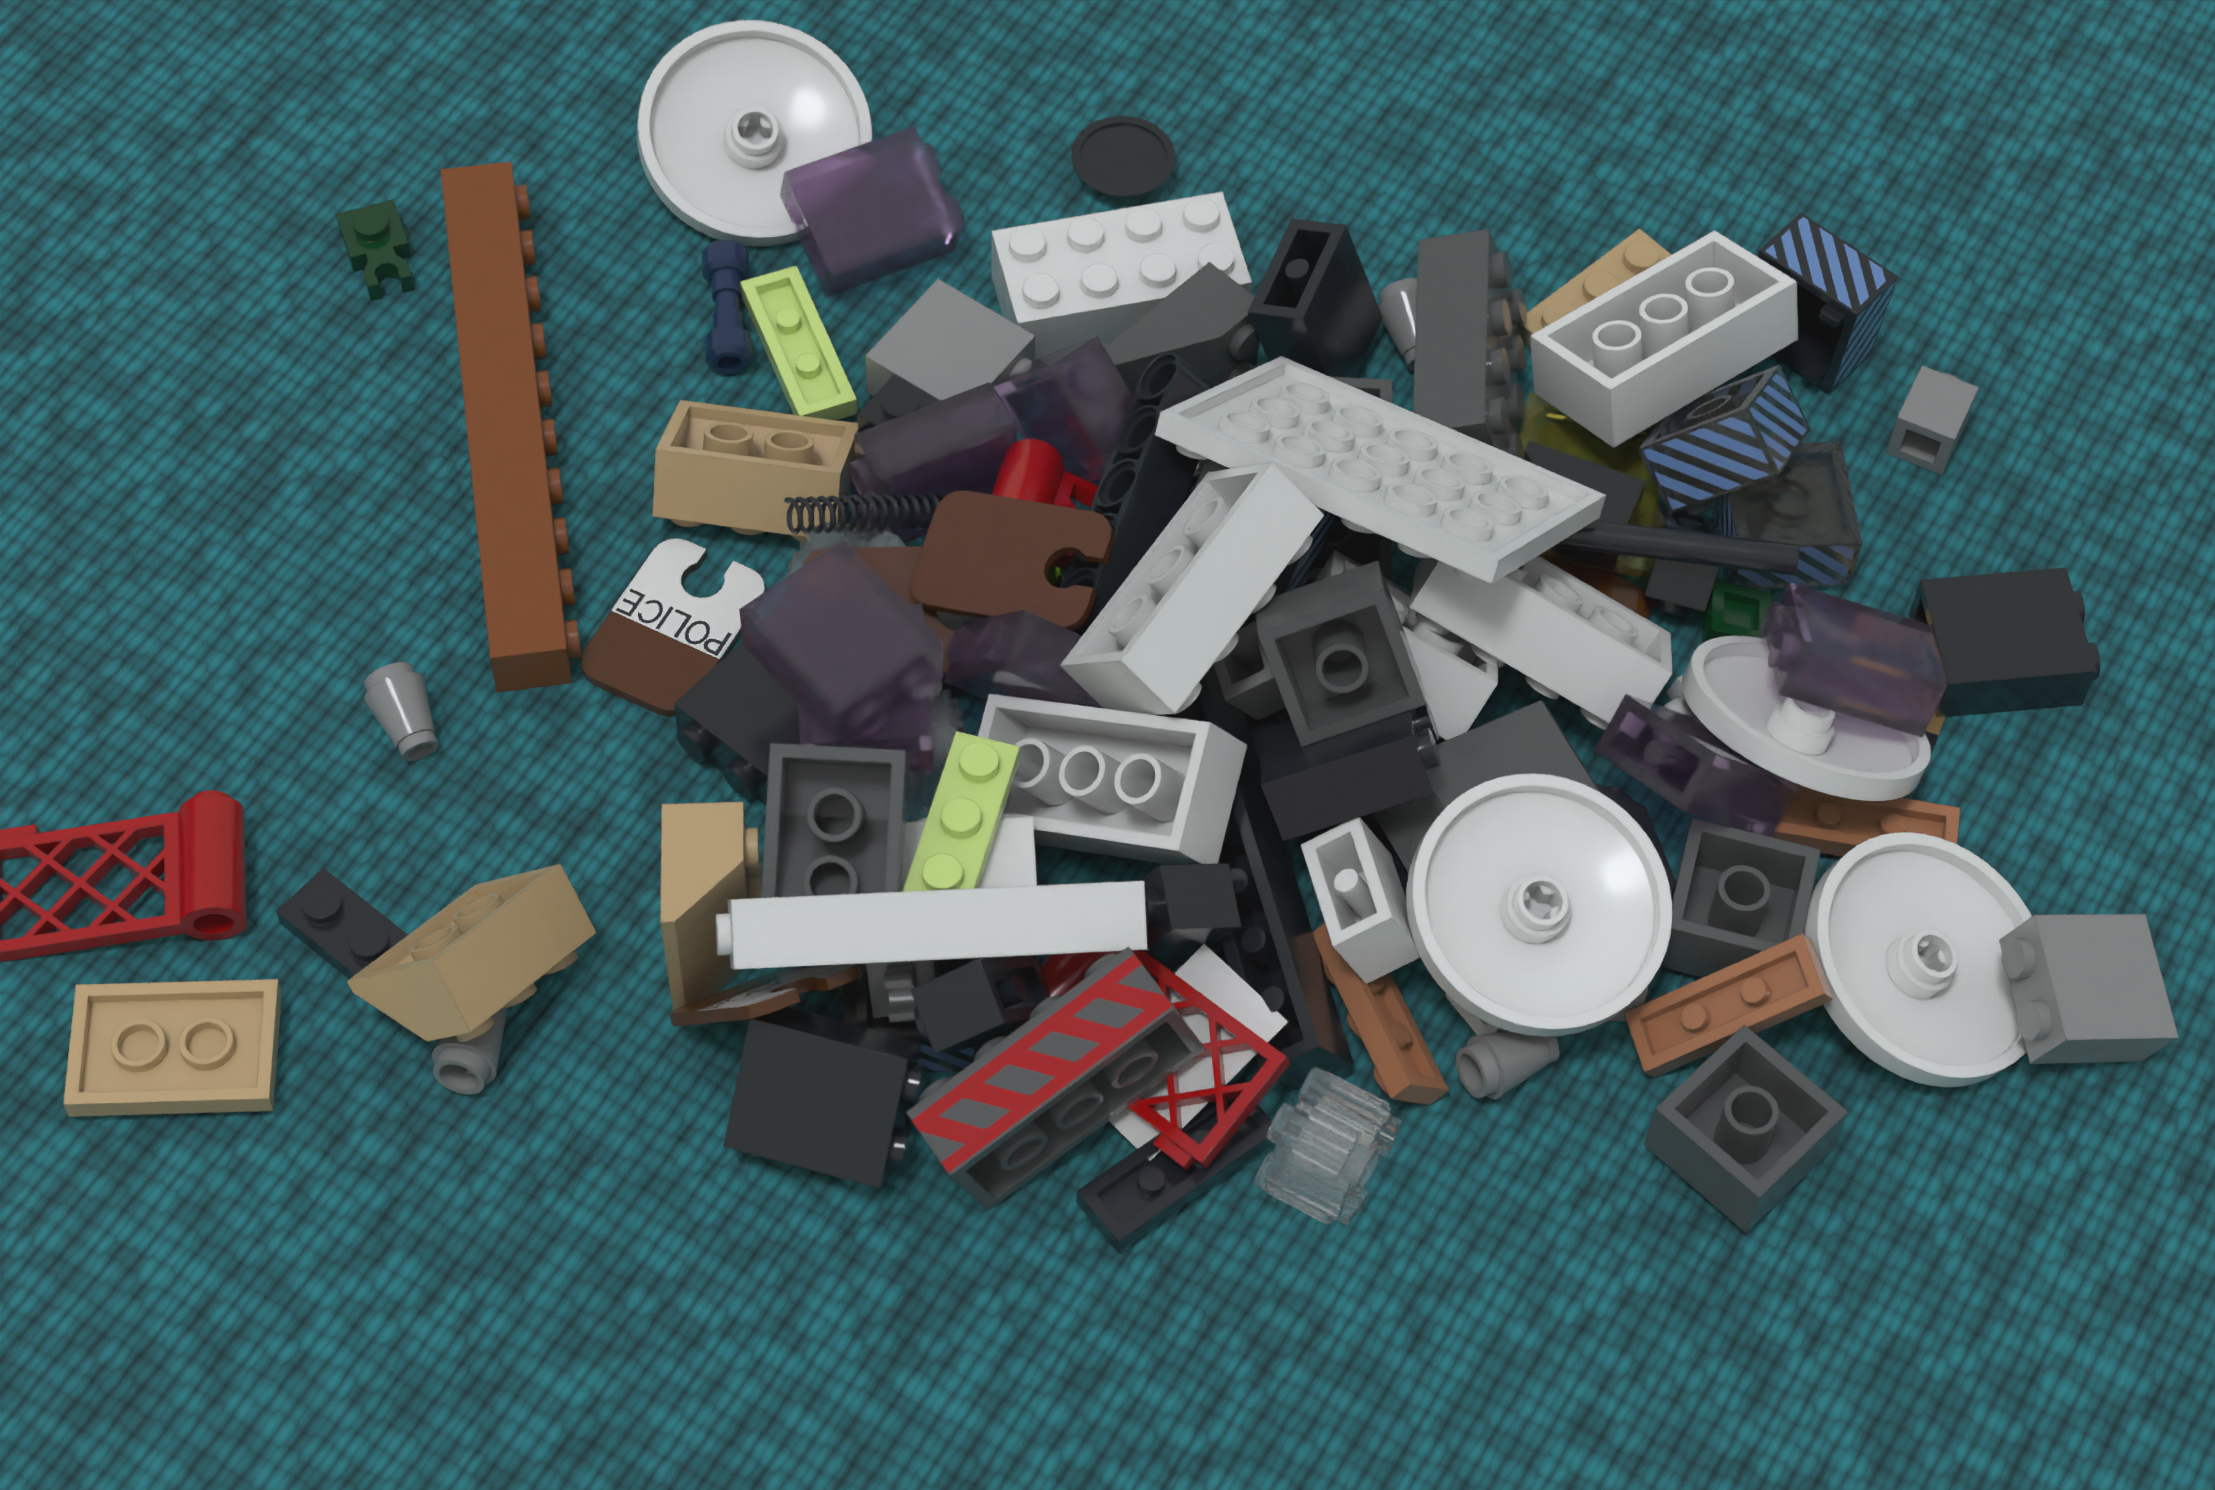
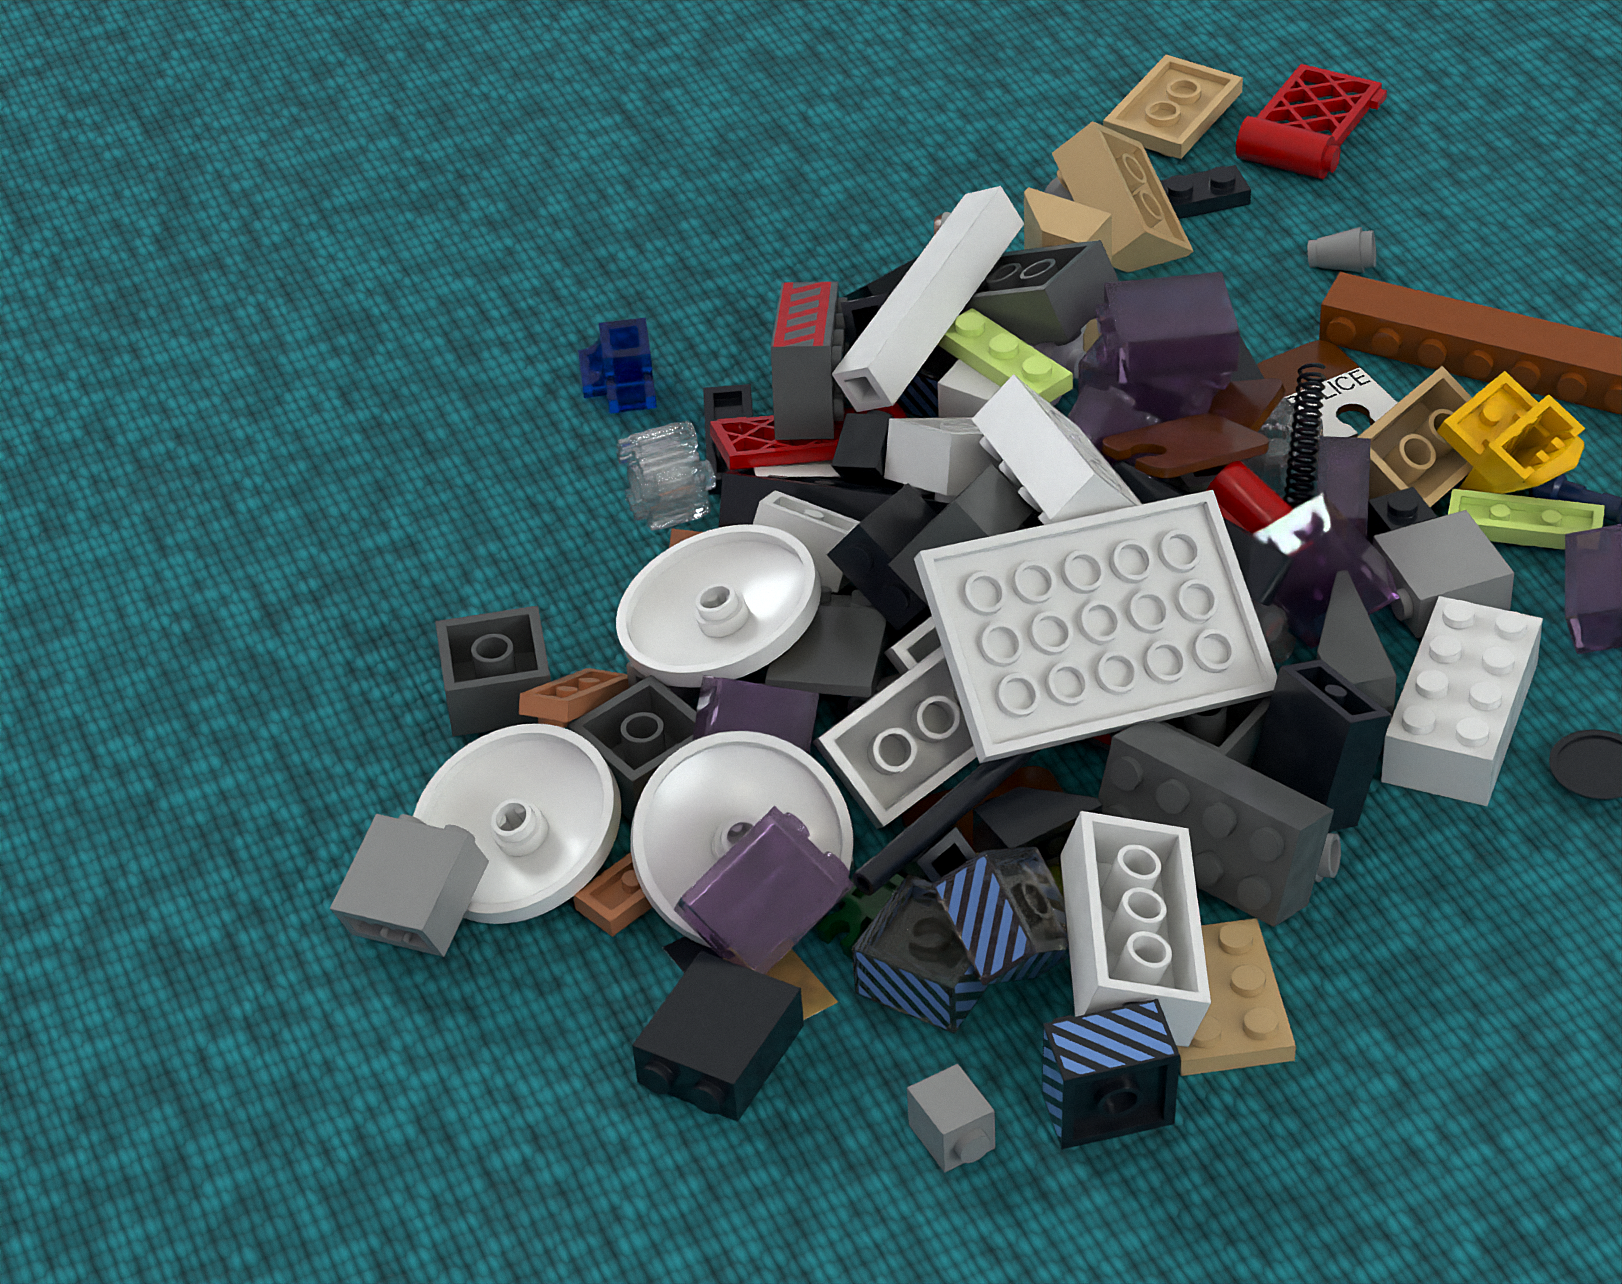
camera: 130 degrees right, 15 degrees down
(727, 347) = (1512, 438): none -> yellow piece
(1142, 1365) = (620, 366): none -> clear blue brick

